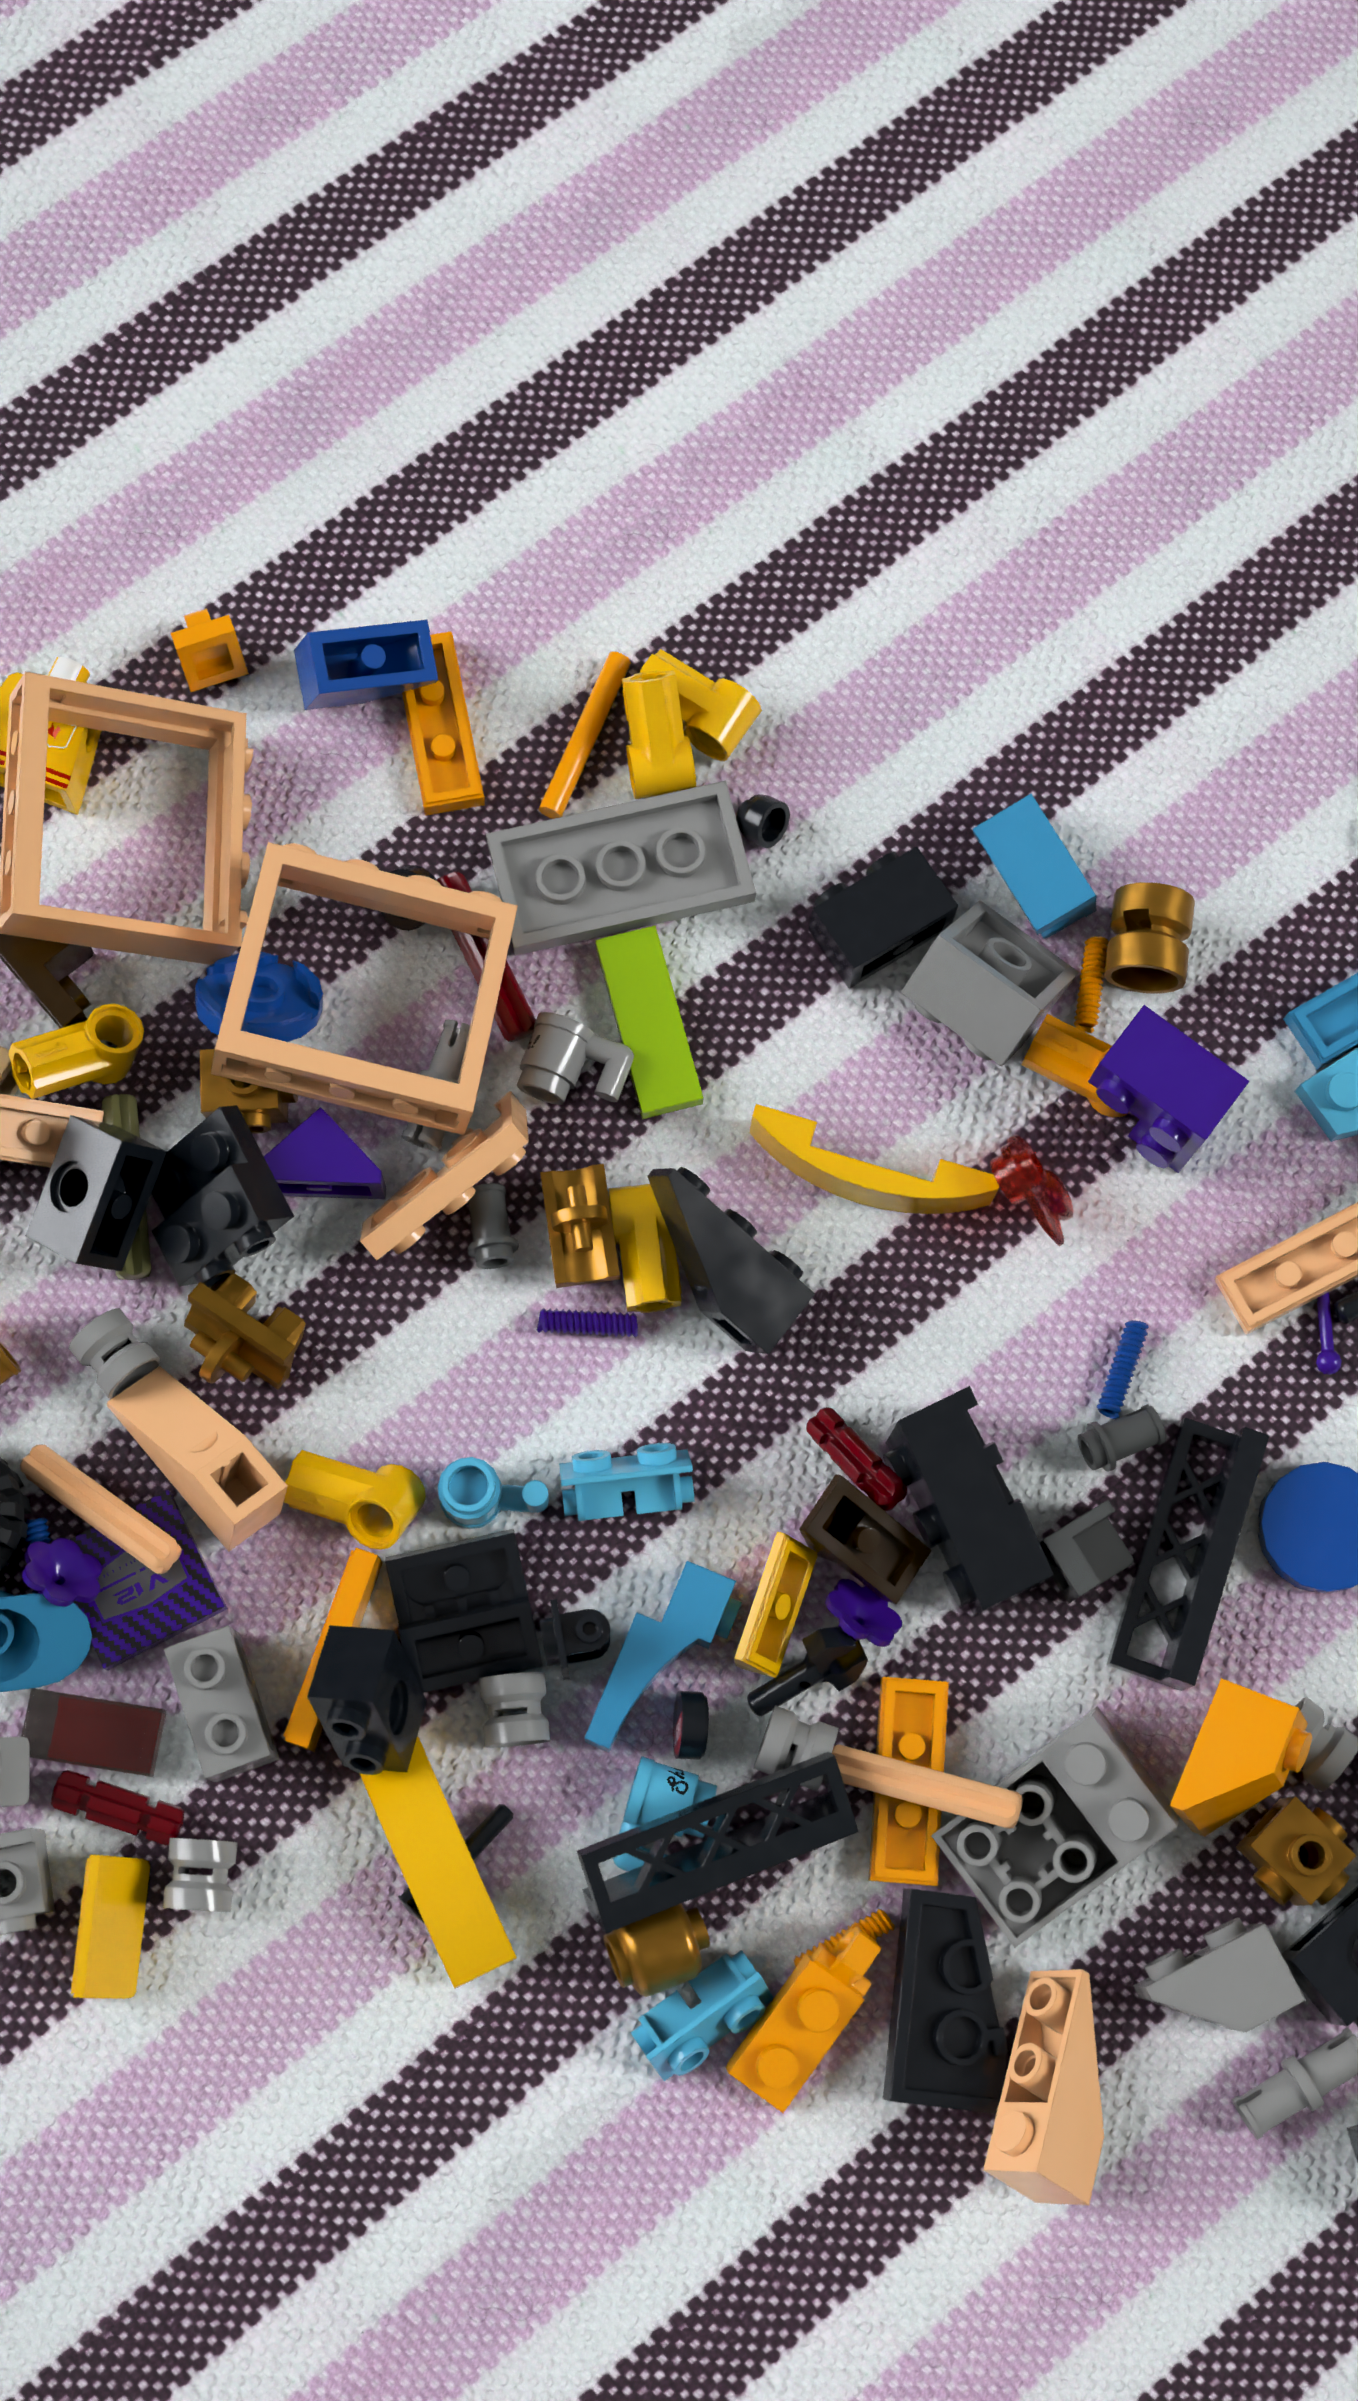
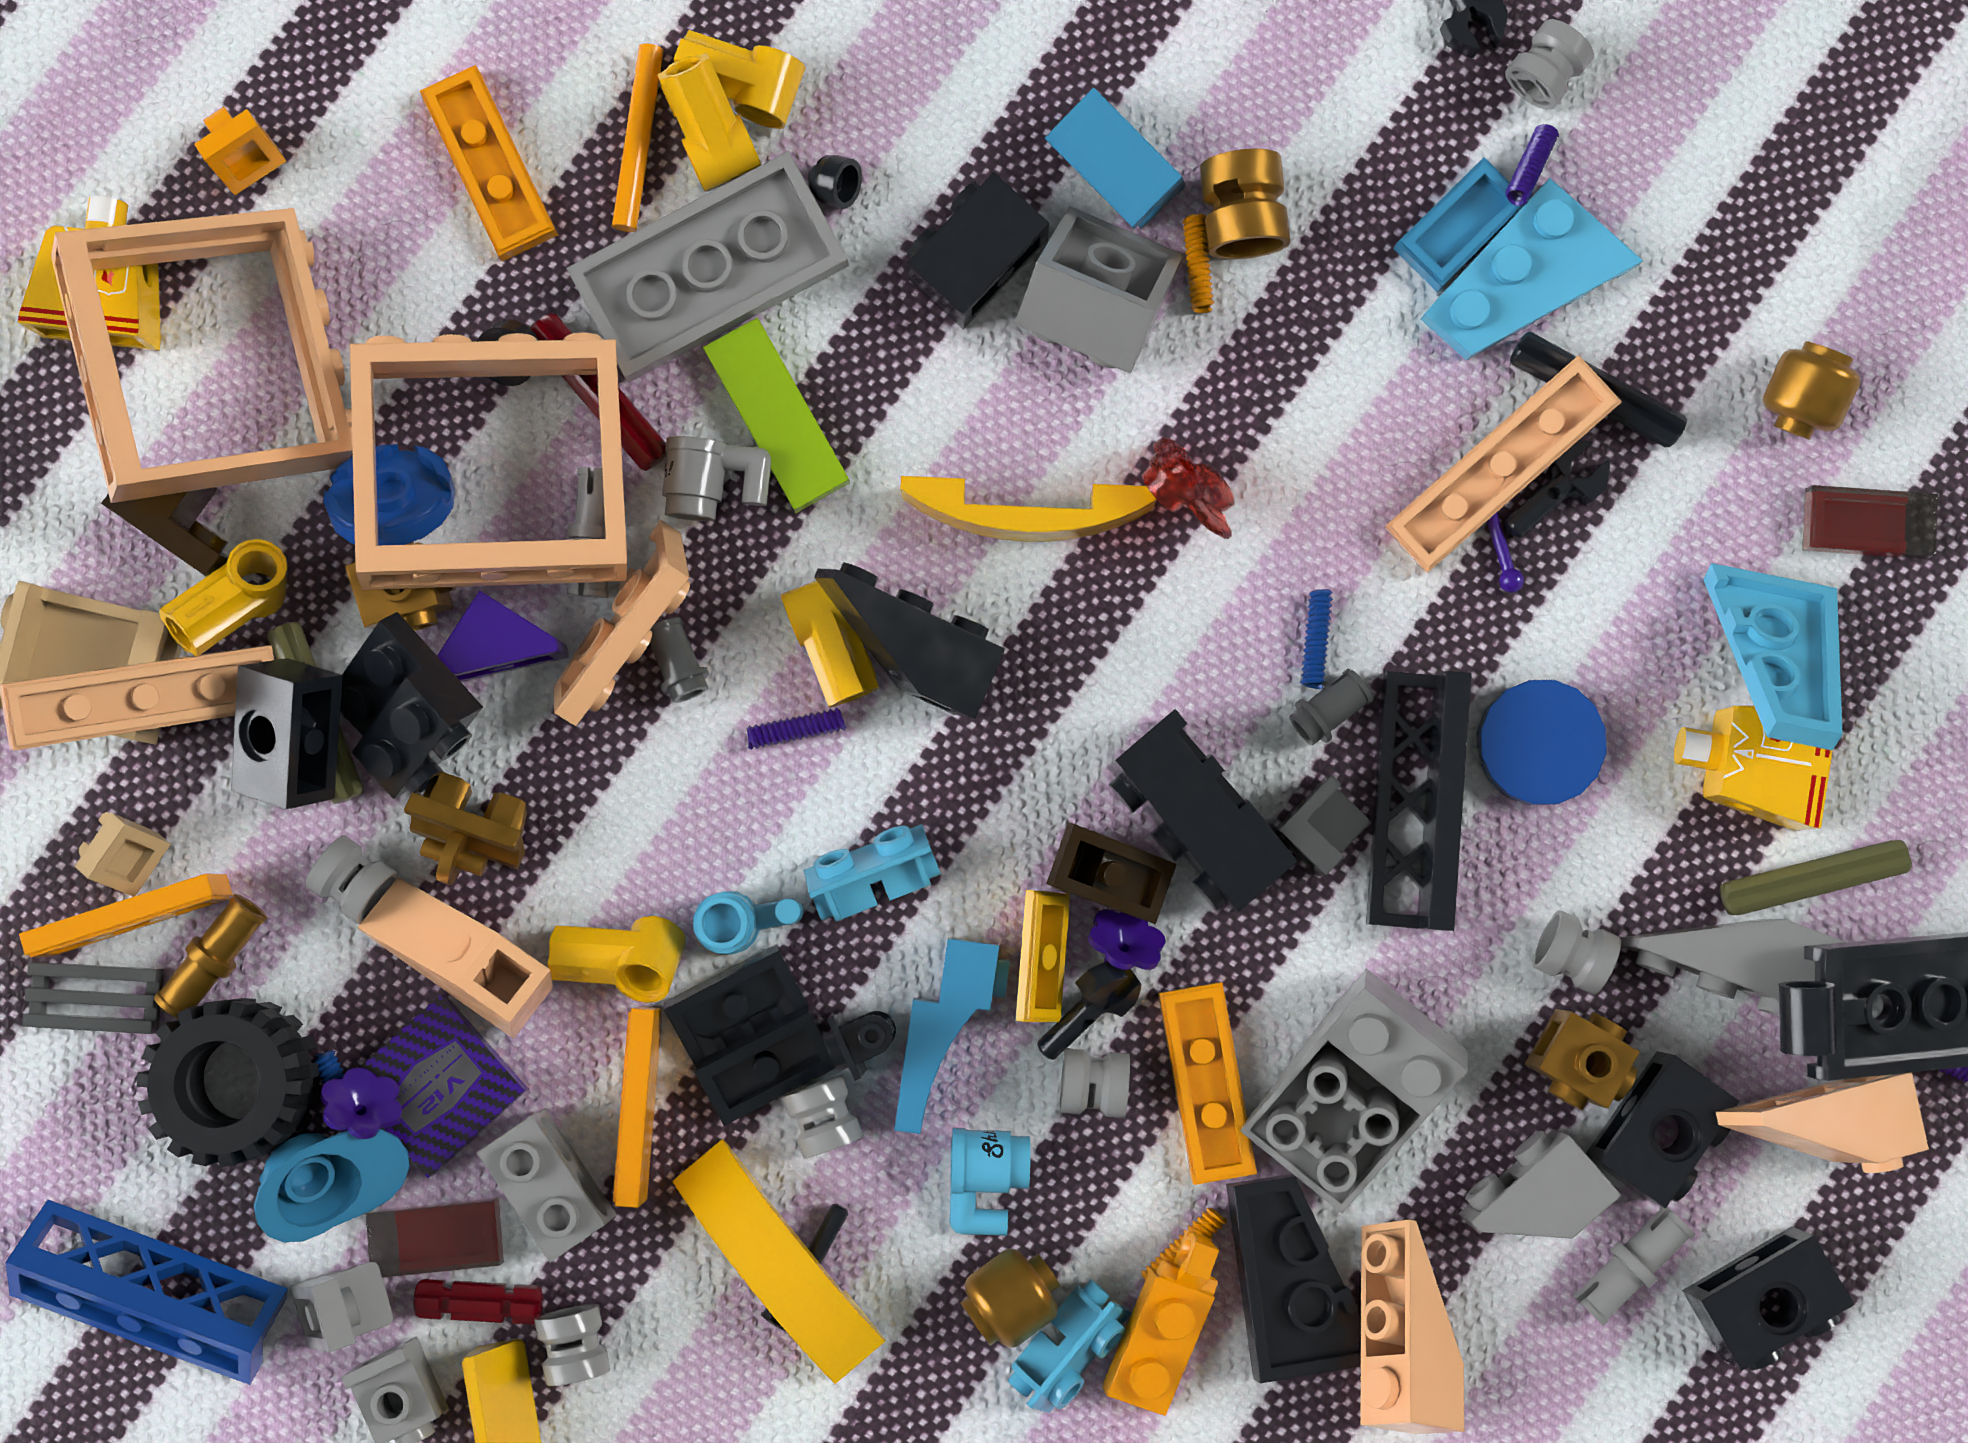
camera: 10 degrees left, 10 degrees up
(101, 1509) = (380, 1032): light nougat axle -> none
(364, 663) = (397, 123): blue slope -> none
(367, 1699) = (681, 1150): black brick -> none
(580, 1226) = (762, 639): pearl gold hips -> none
(690, 1725) = (991, 1087): black tile -> none
(724, 1855) = (1050, 1202): black fence -> none
(856, 1459) = (1084, 796): dark red axle -> none
(928, 1787) = (1223, 1091): light nougat axle -> none
(1068, 1059) = (1206, 347): light orange piece -> none
(1168, 1085) = (1298, 355): dark purple brick -> none
(1239, 1756) = (1511, 989): light orange slope -> none

